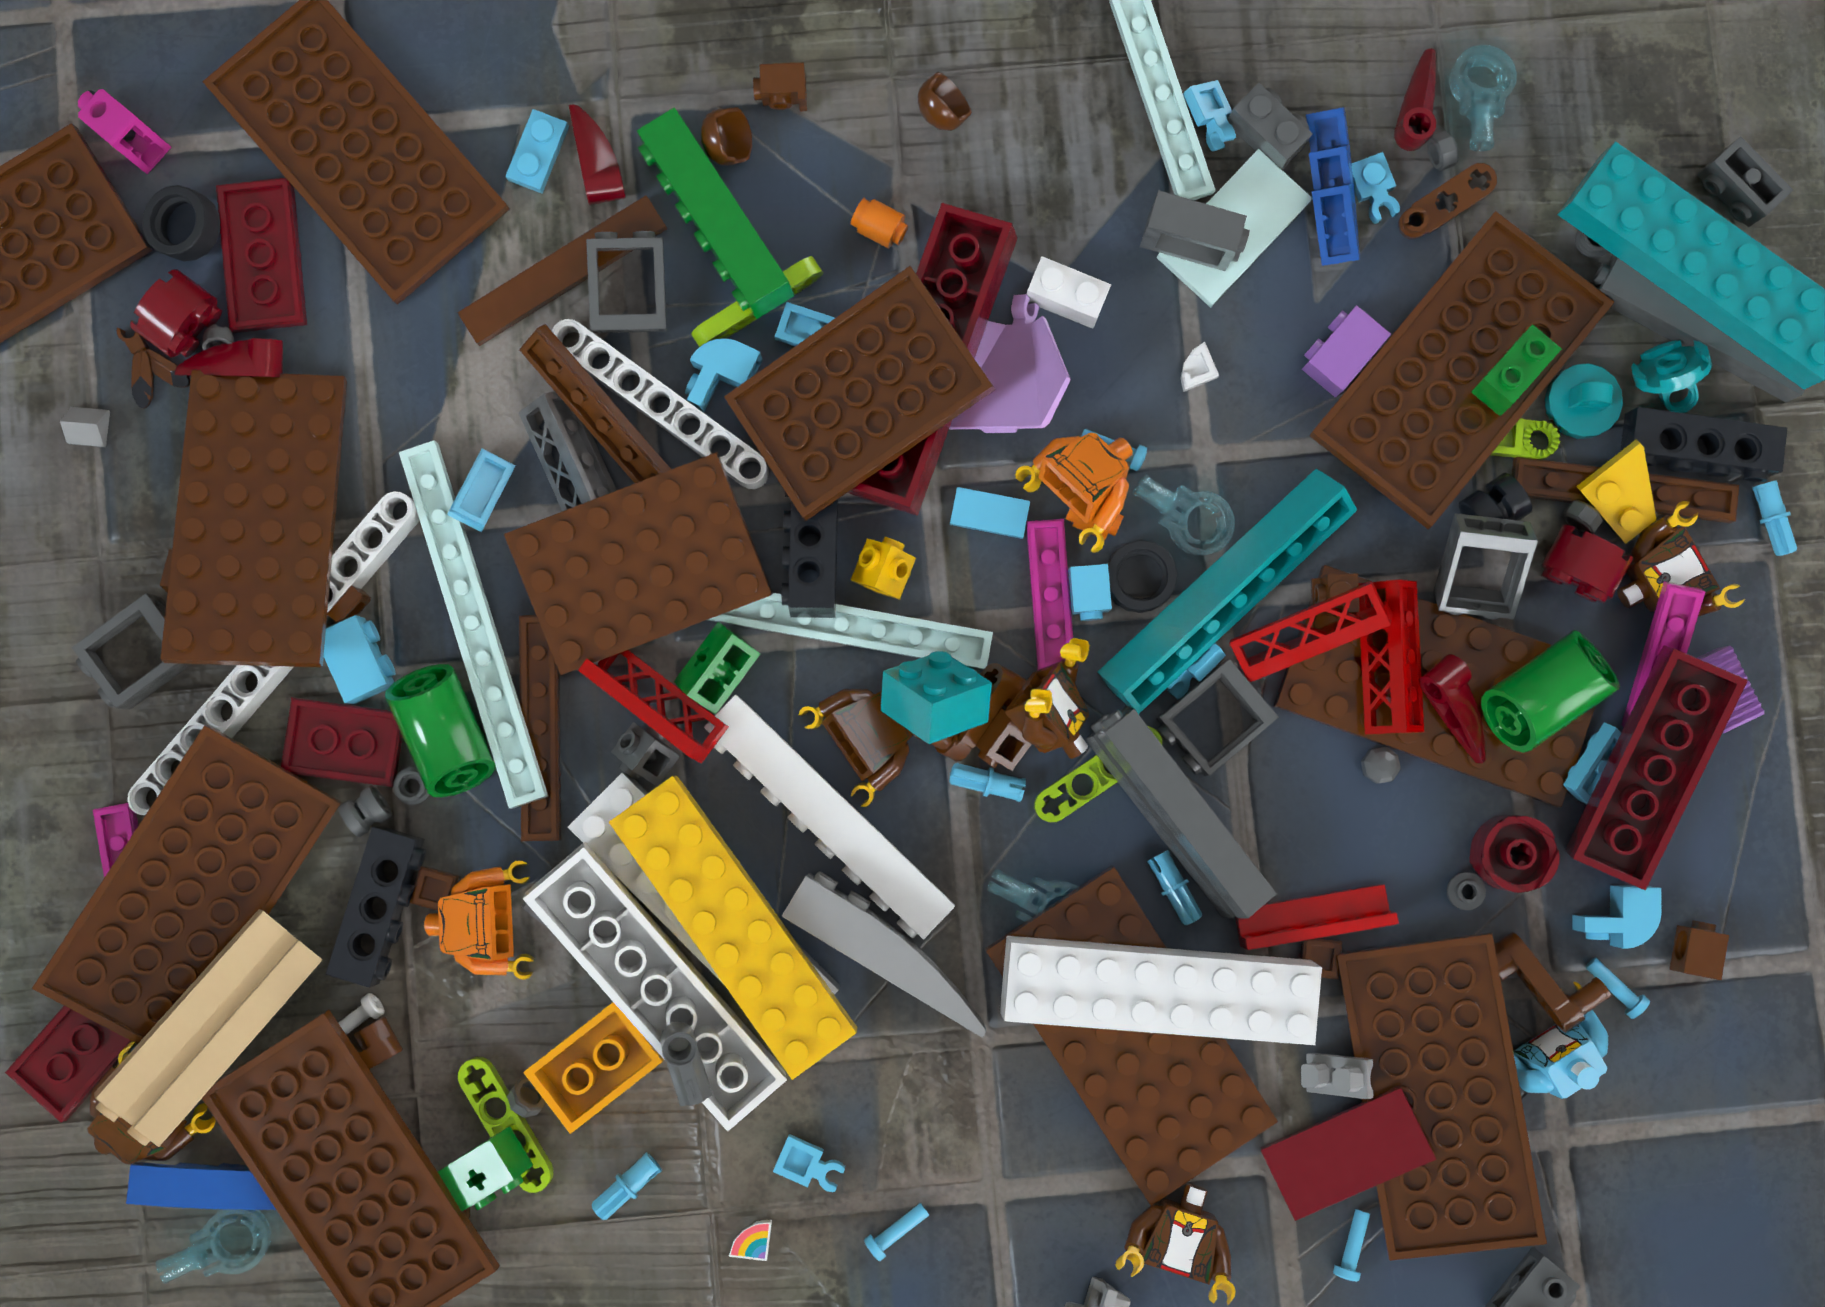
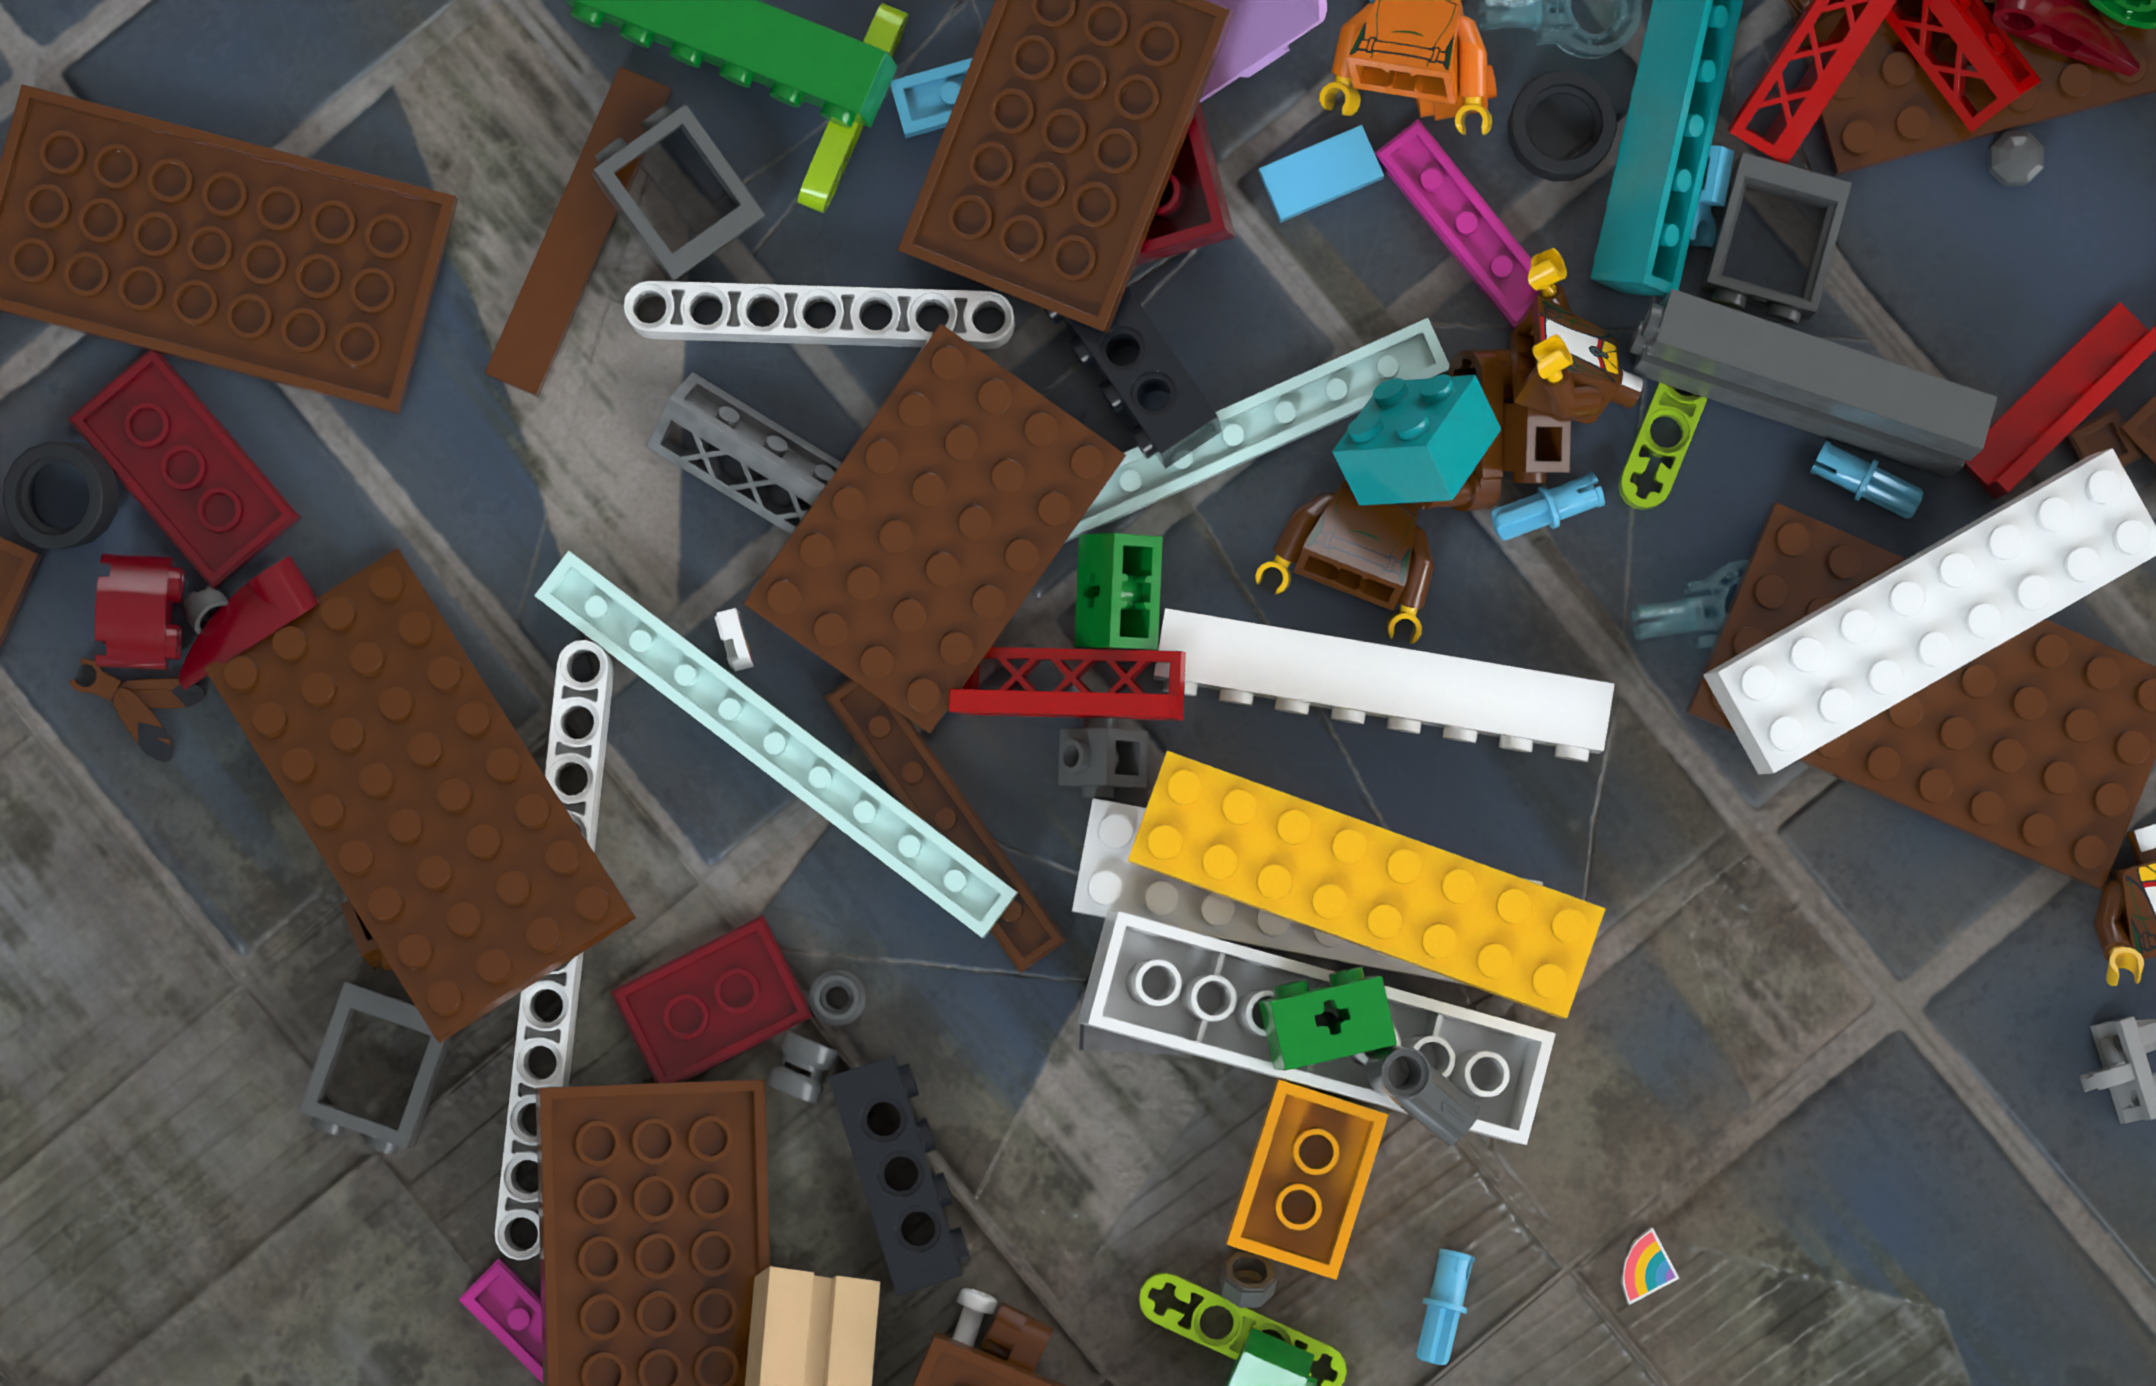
camera: 30 degrees left, 0 degrees up
(86, 426) = (114, 831): light grey slope -> none
(349, 604) = (606, 827): reddish brown tile -> none
(357, 660) = (663, 890): medium azure brick -> none
(431, 886) = (952, 1107): reddish brown tile -> none
(440, 730) = (829, 900): green brick -> none
(478, 923) = (1040, 1106): orange torso -> none
(481, 490) = (670, 572): medium azure tile -> none
(494, 544) = (734, 637): none -> white tile
(537, 151) = (442, 103): medium azure plate -> none
(592, 405) = (741, 374): reddish brown tile -> none
(597, 160) = (530, 66): dark red piece -> none
(671, 1005) = (1361, 1024): none -> green brick
(718, 361) = (863, 207): medium azure brick -> none
(802, 1161) = (1639, 1127): medium azure plate -> none
(877, 945) = (1544, 795): light grey slope -> none
(883, 567) = (1238, 328): yellow brick -> none
(895, 1231) = (1803, 1164): medium azure piece -> none
(1089, 591) = (1513, 186): medium azure brick -> none

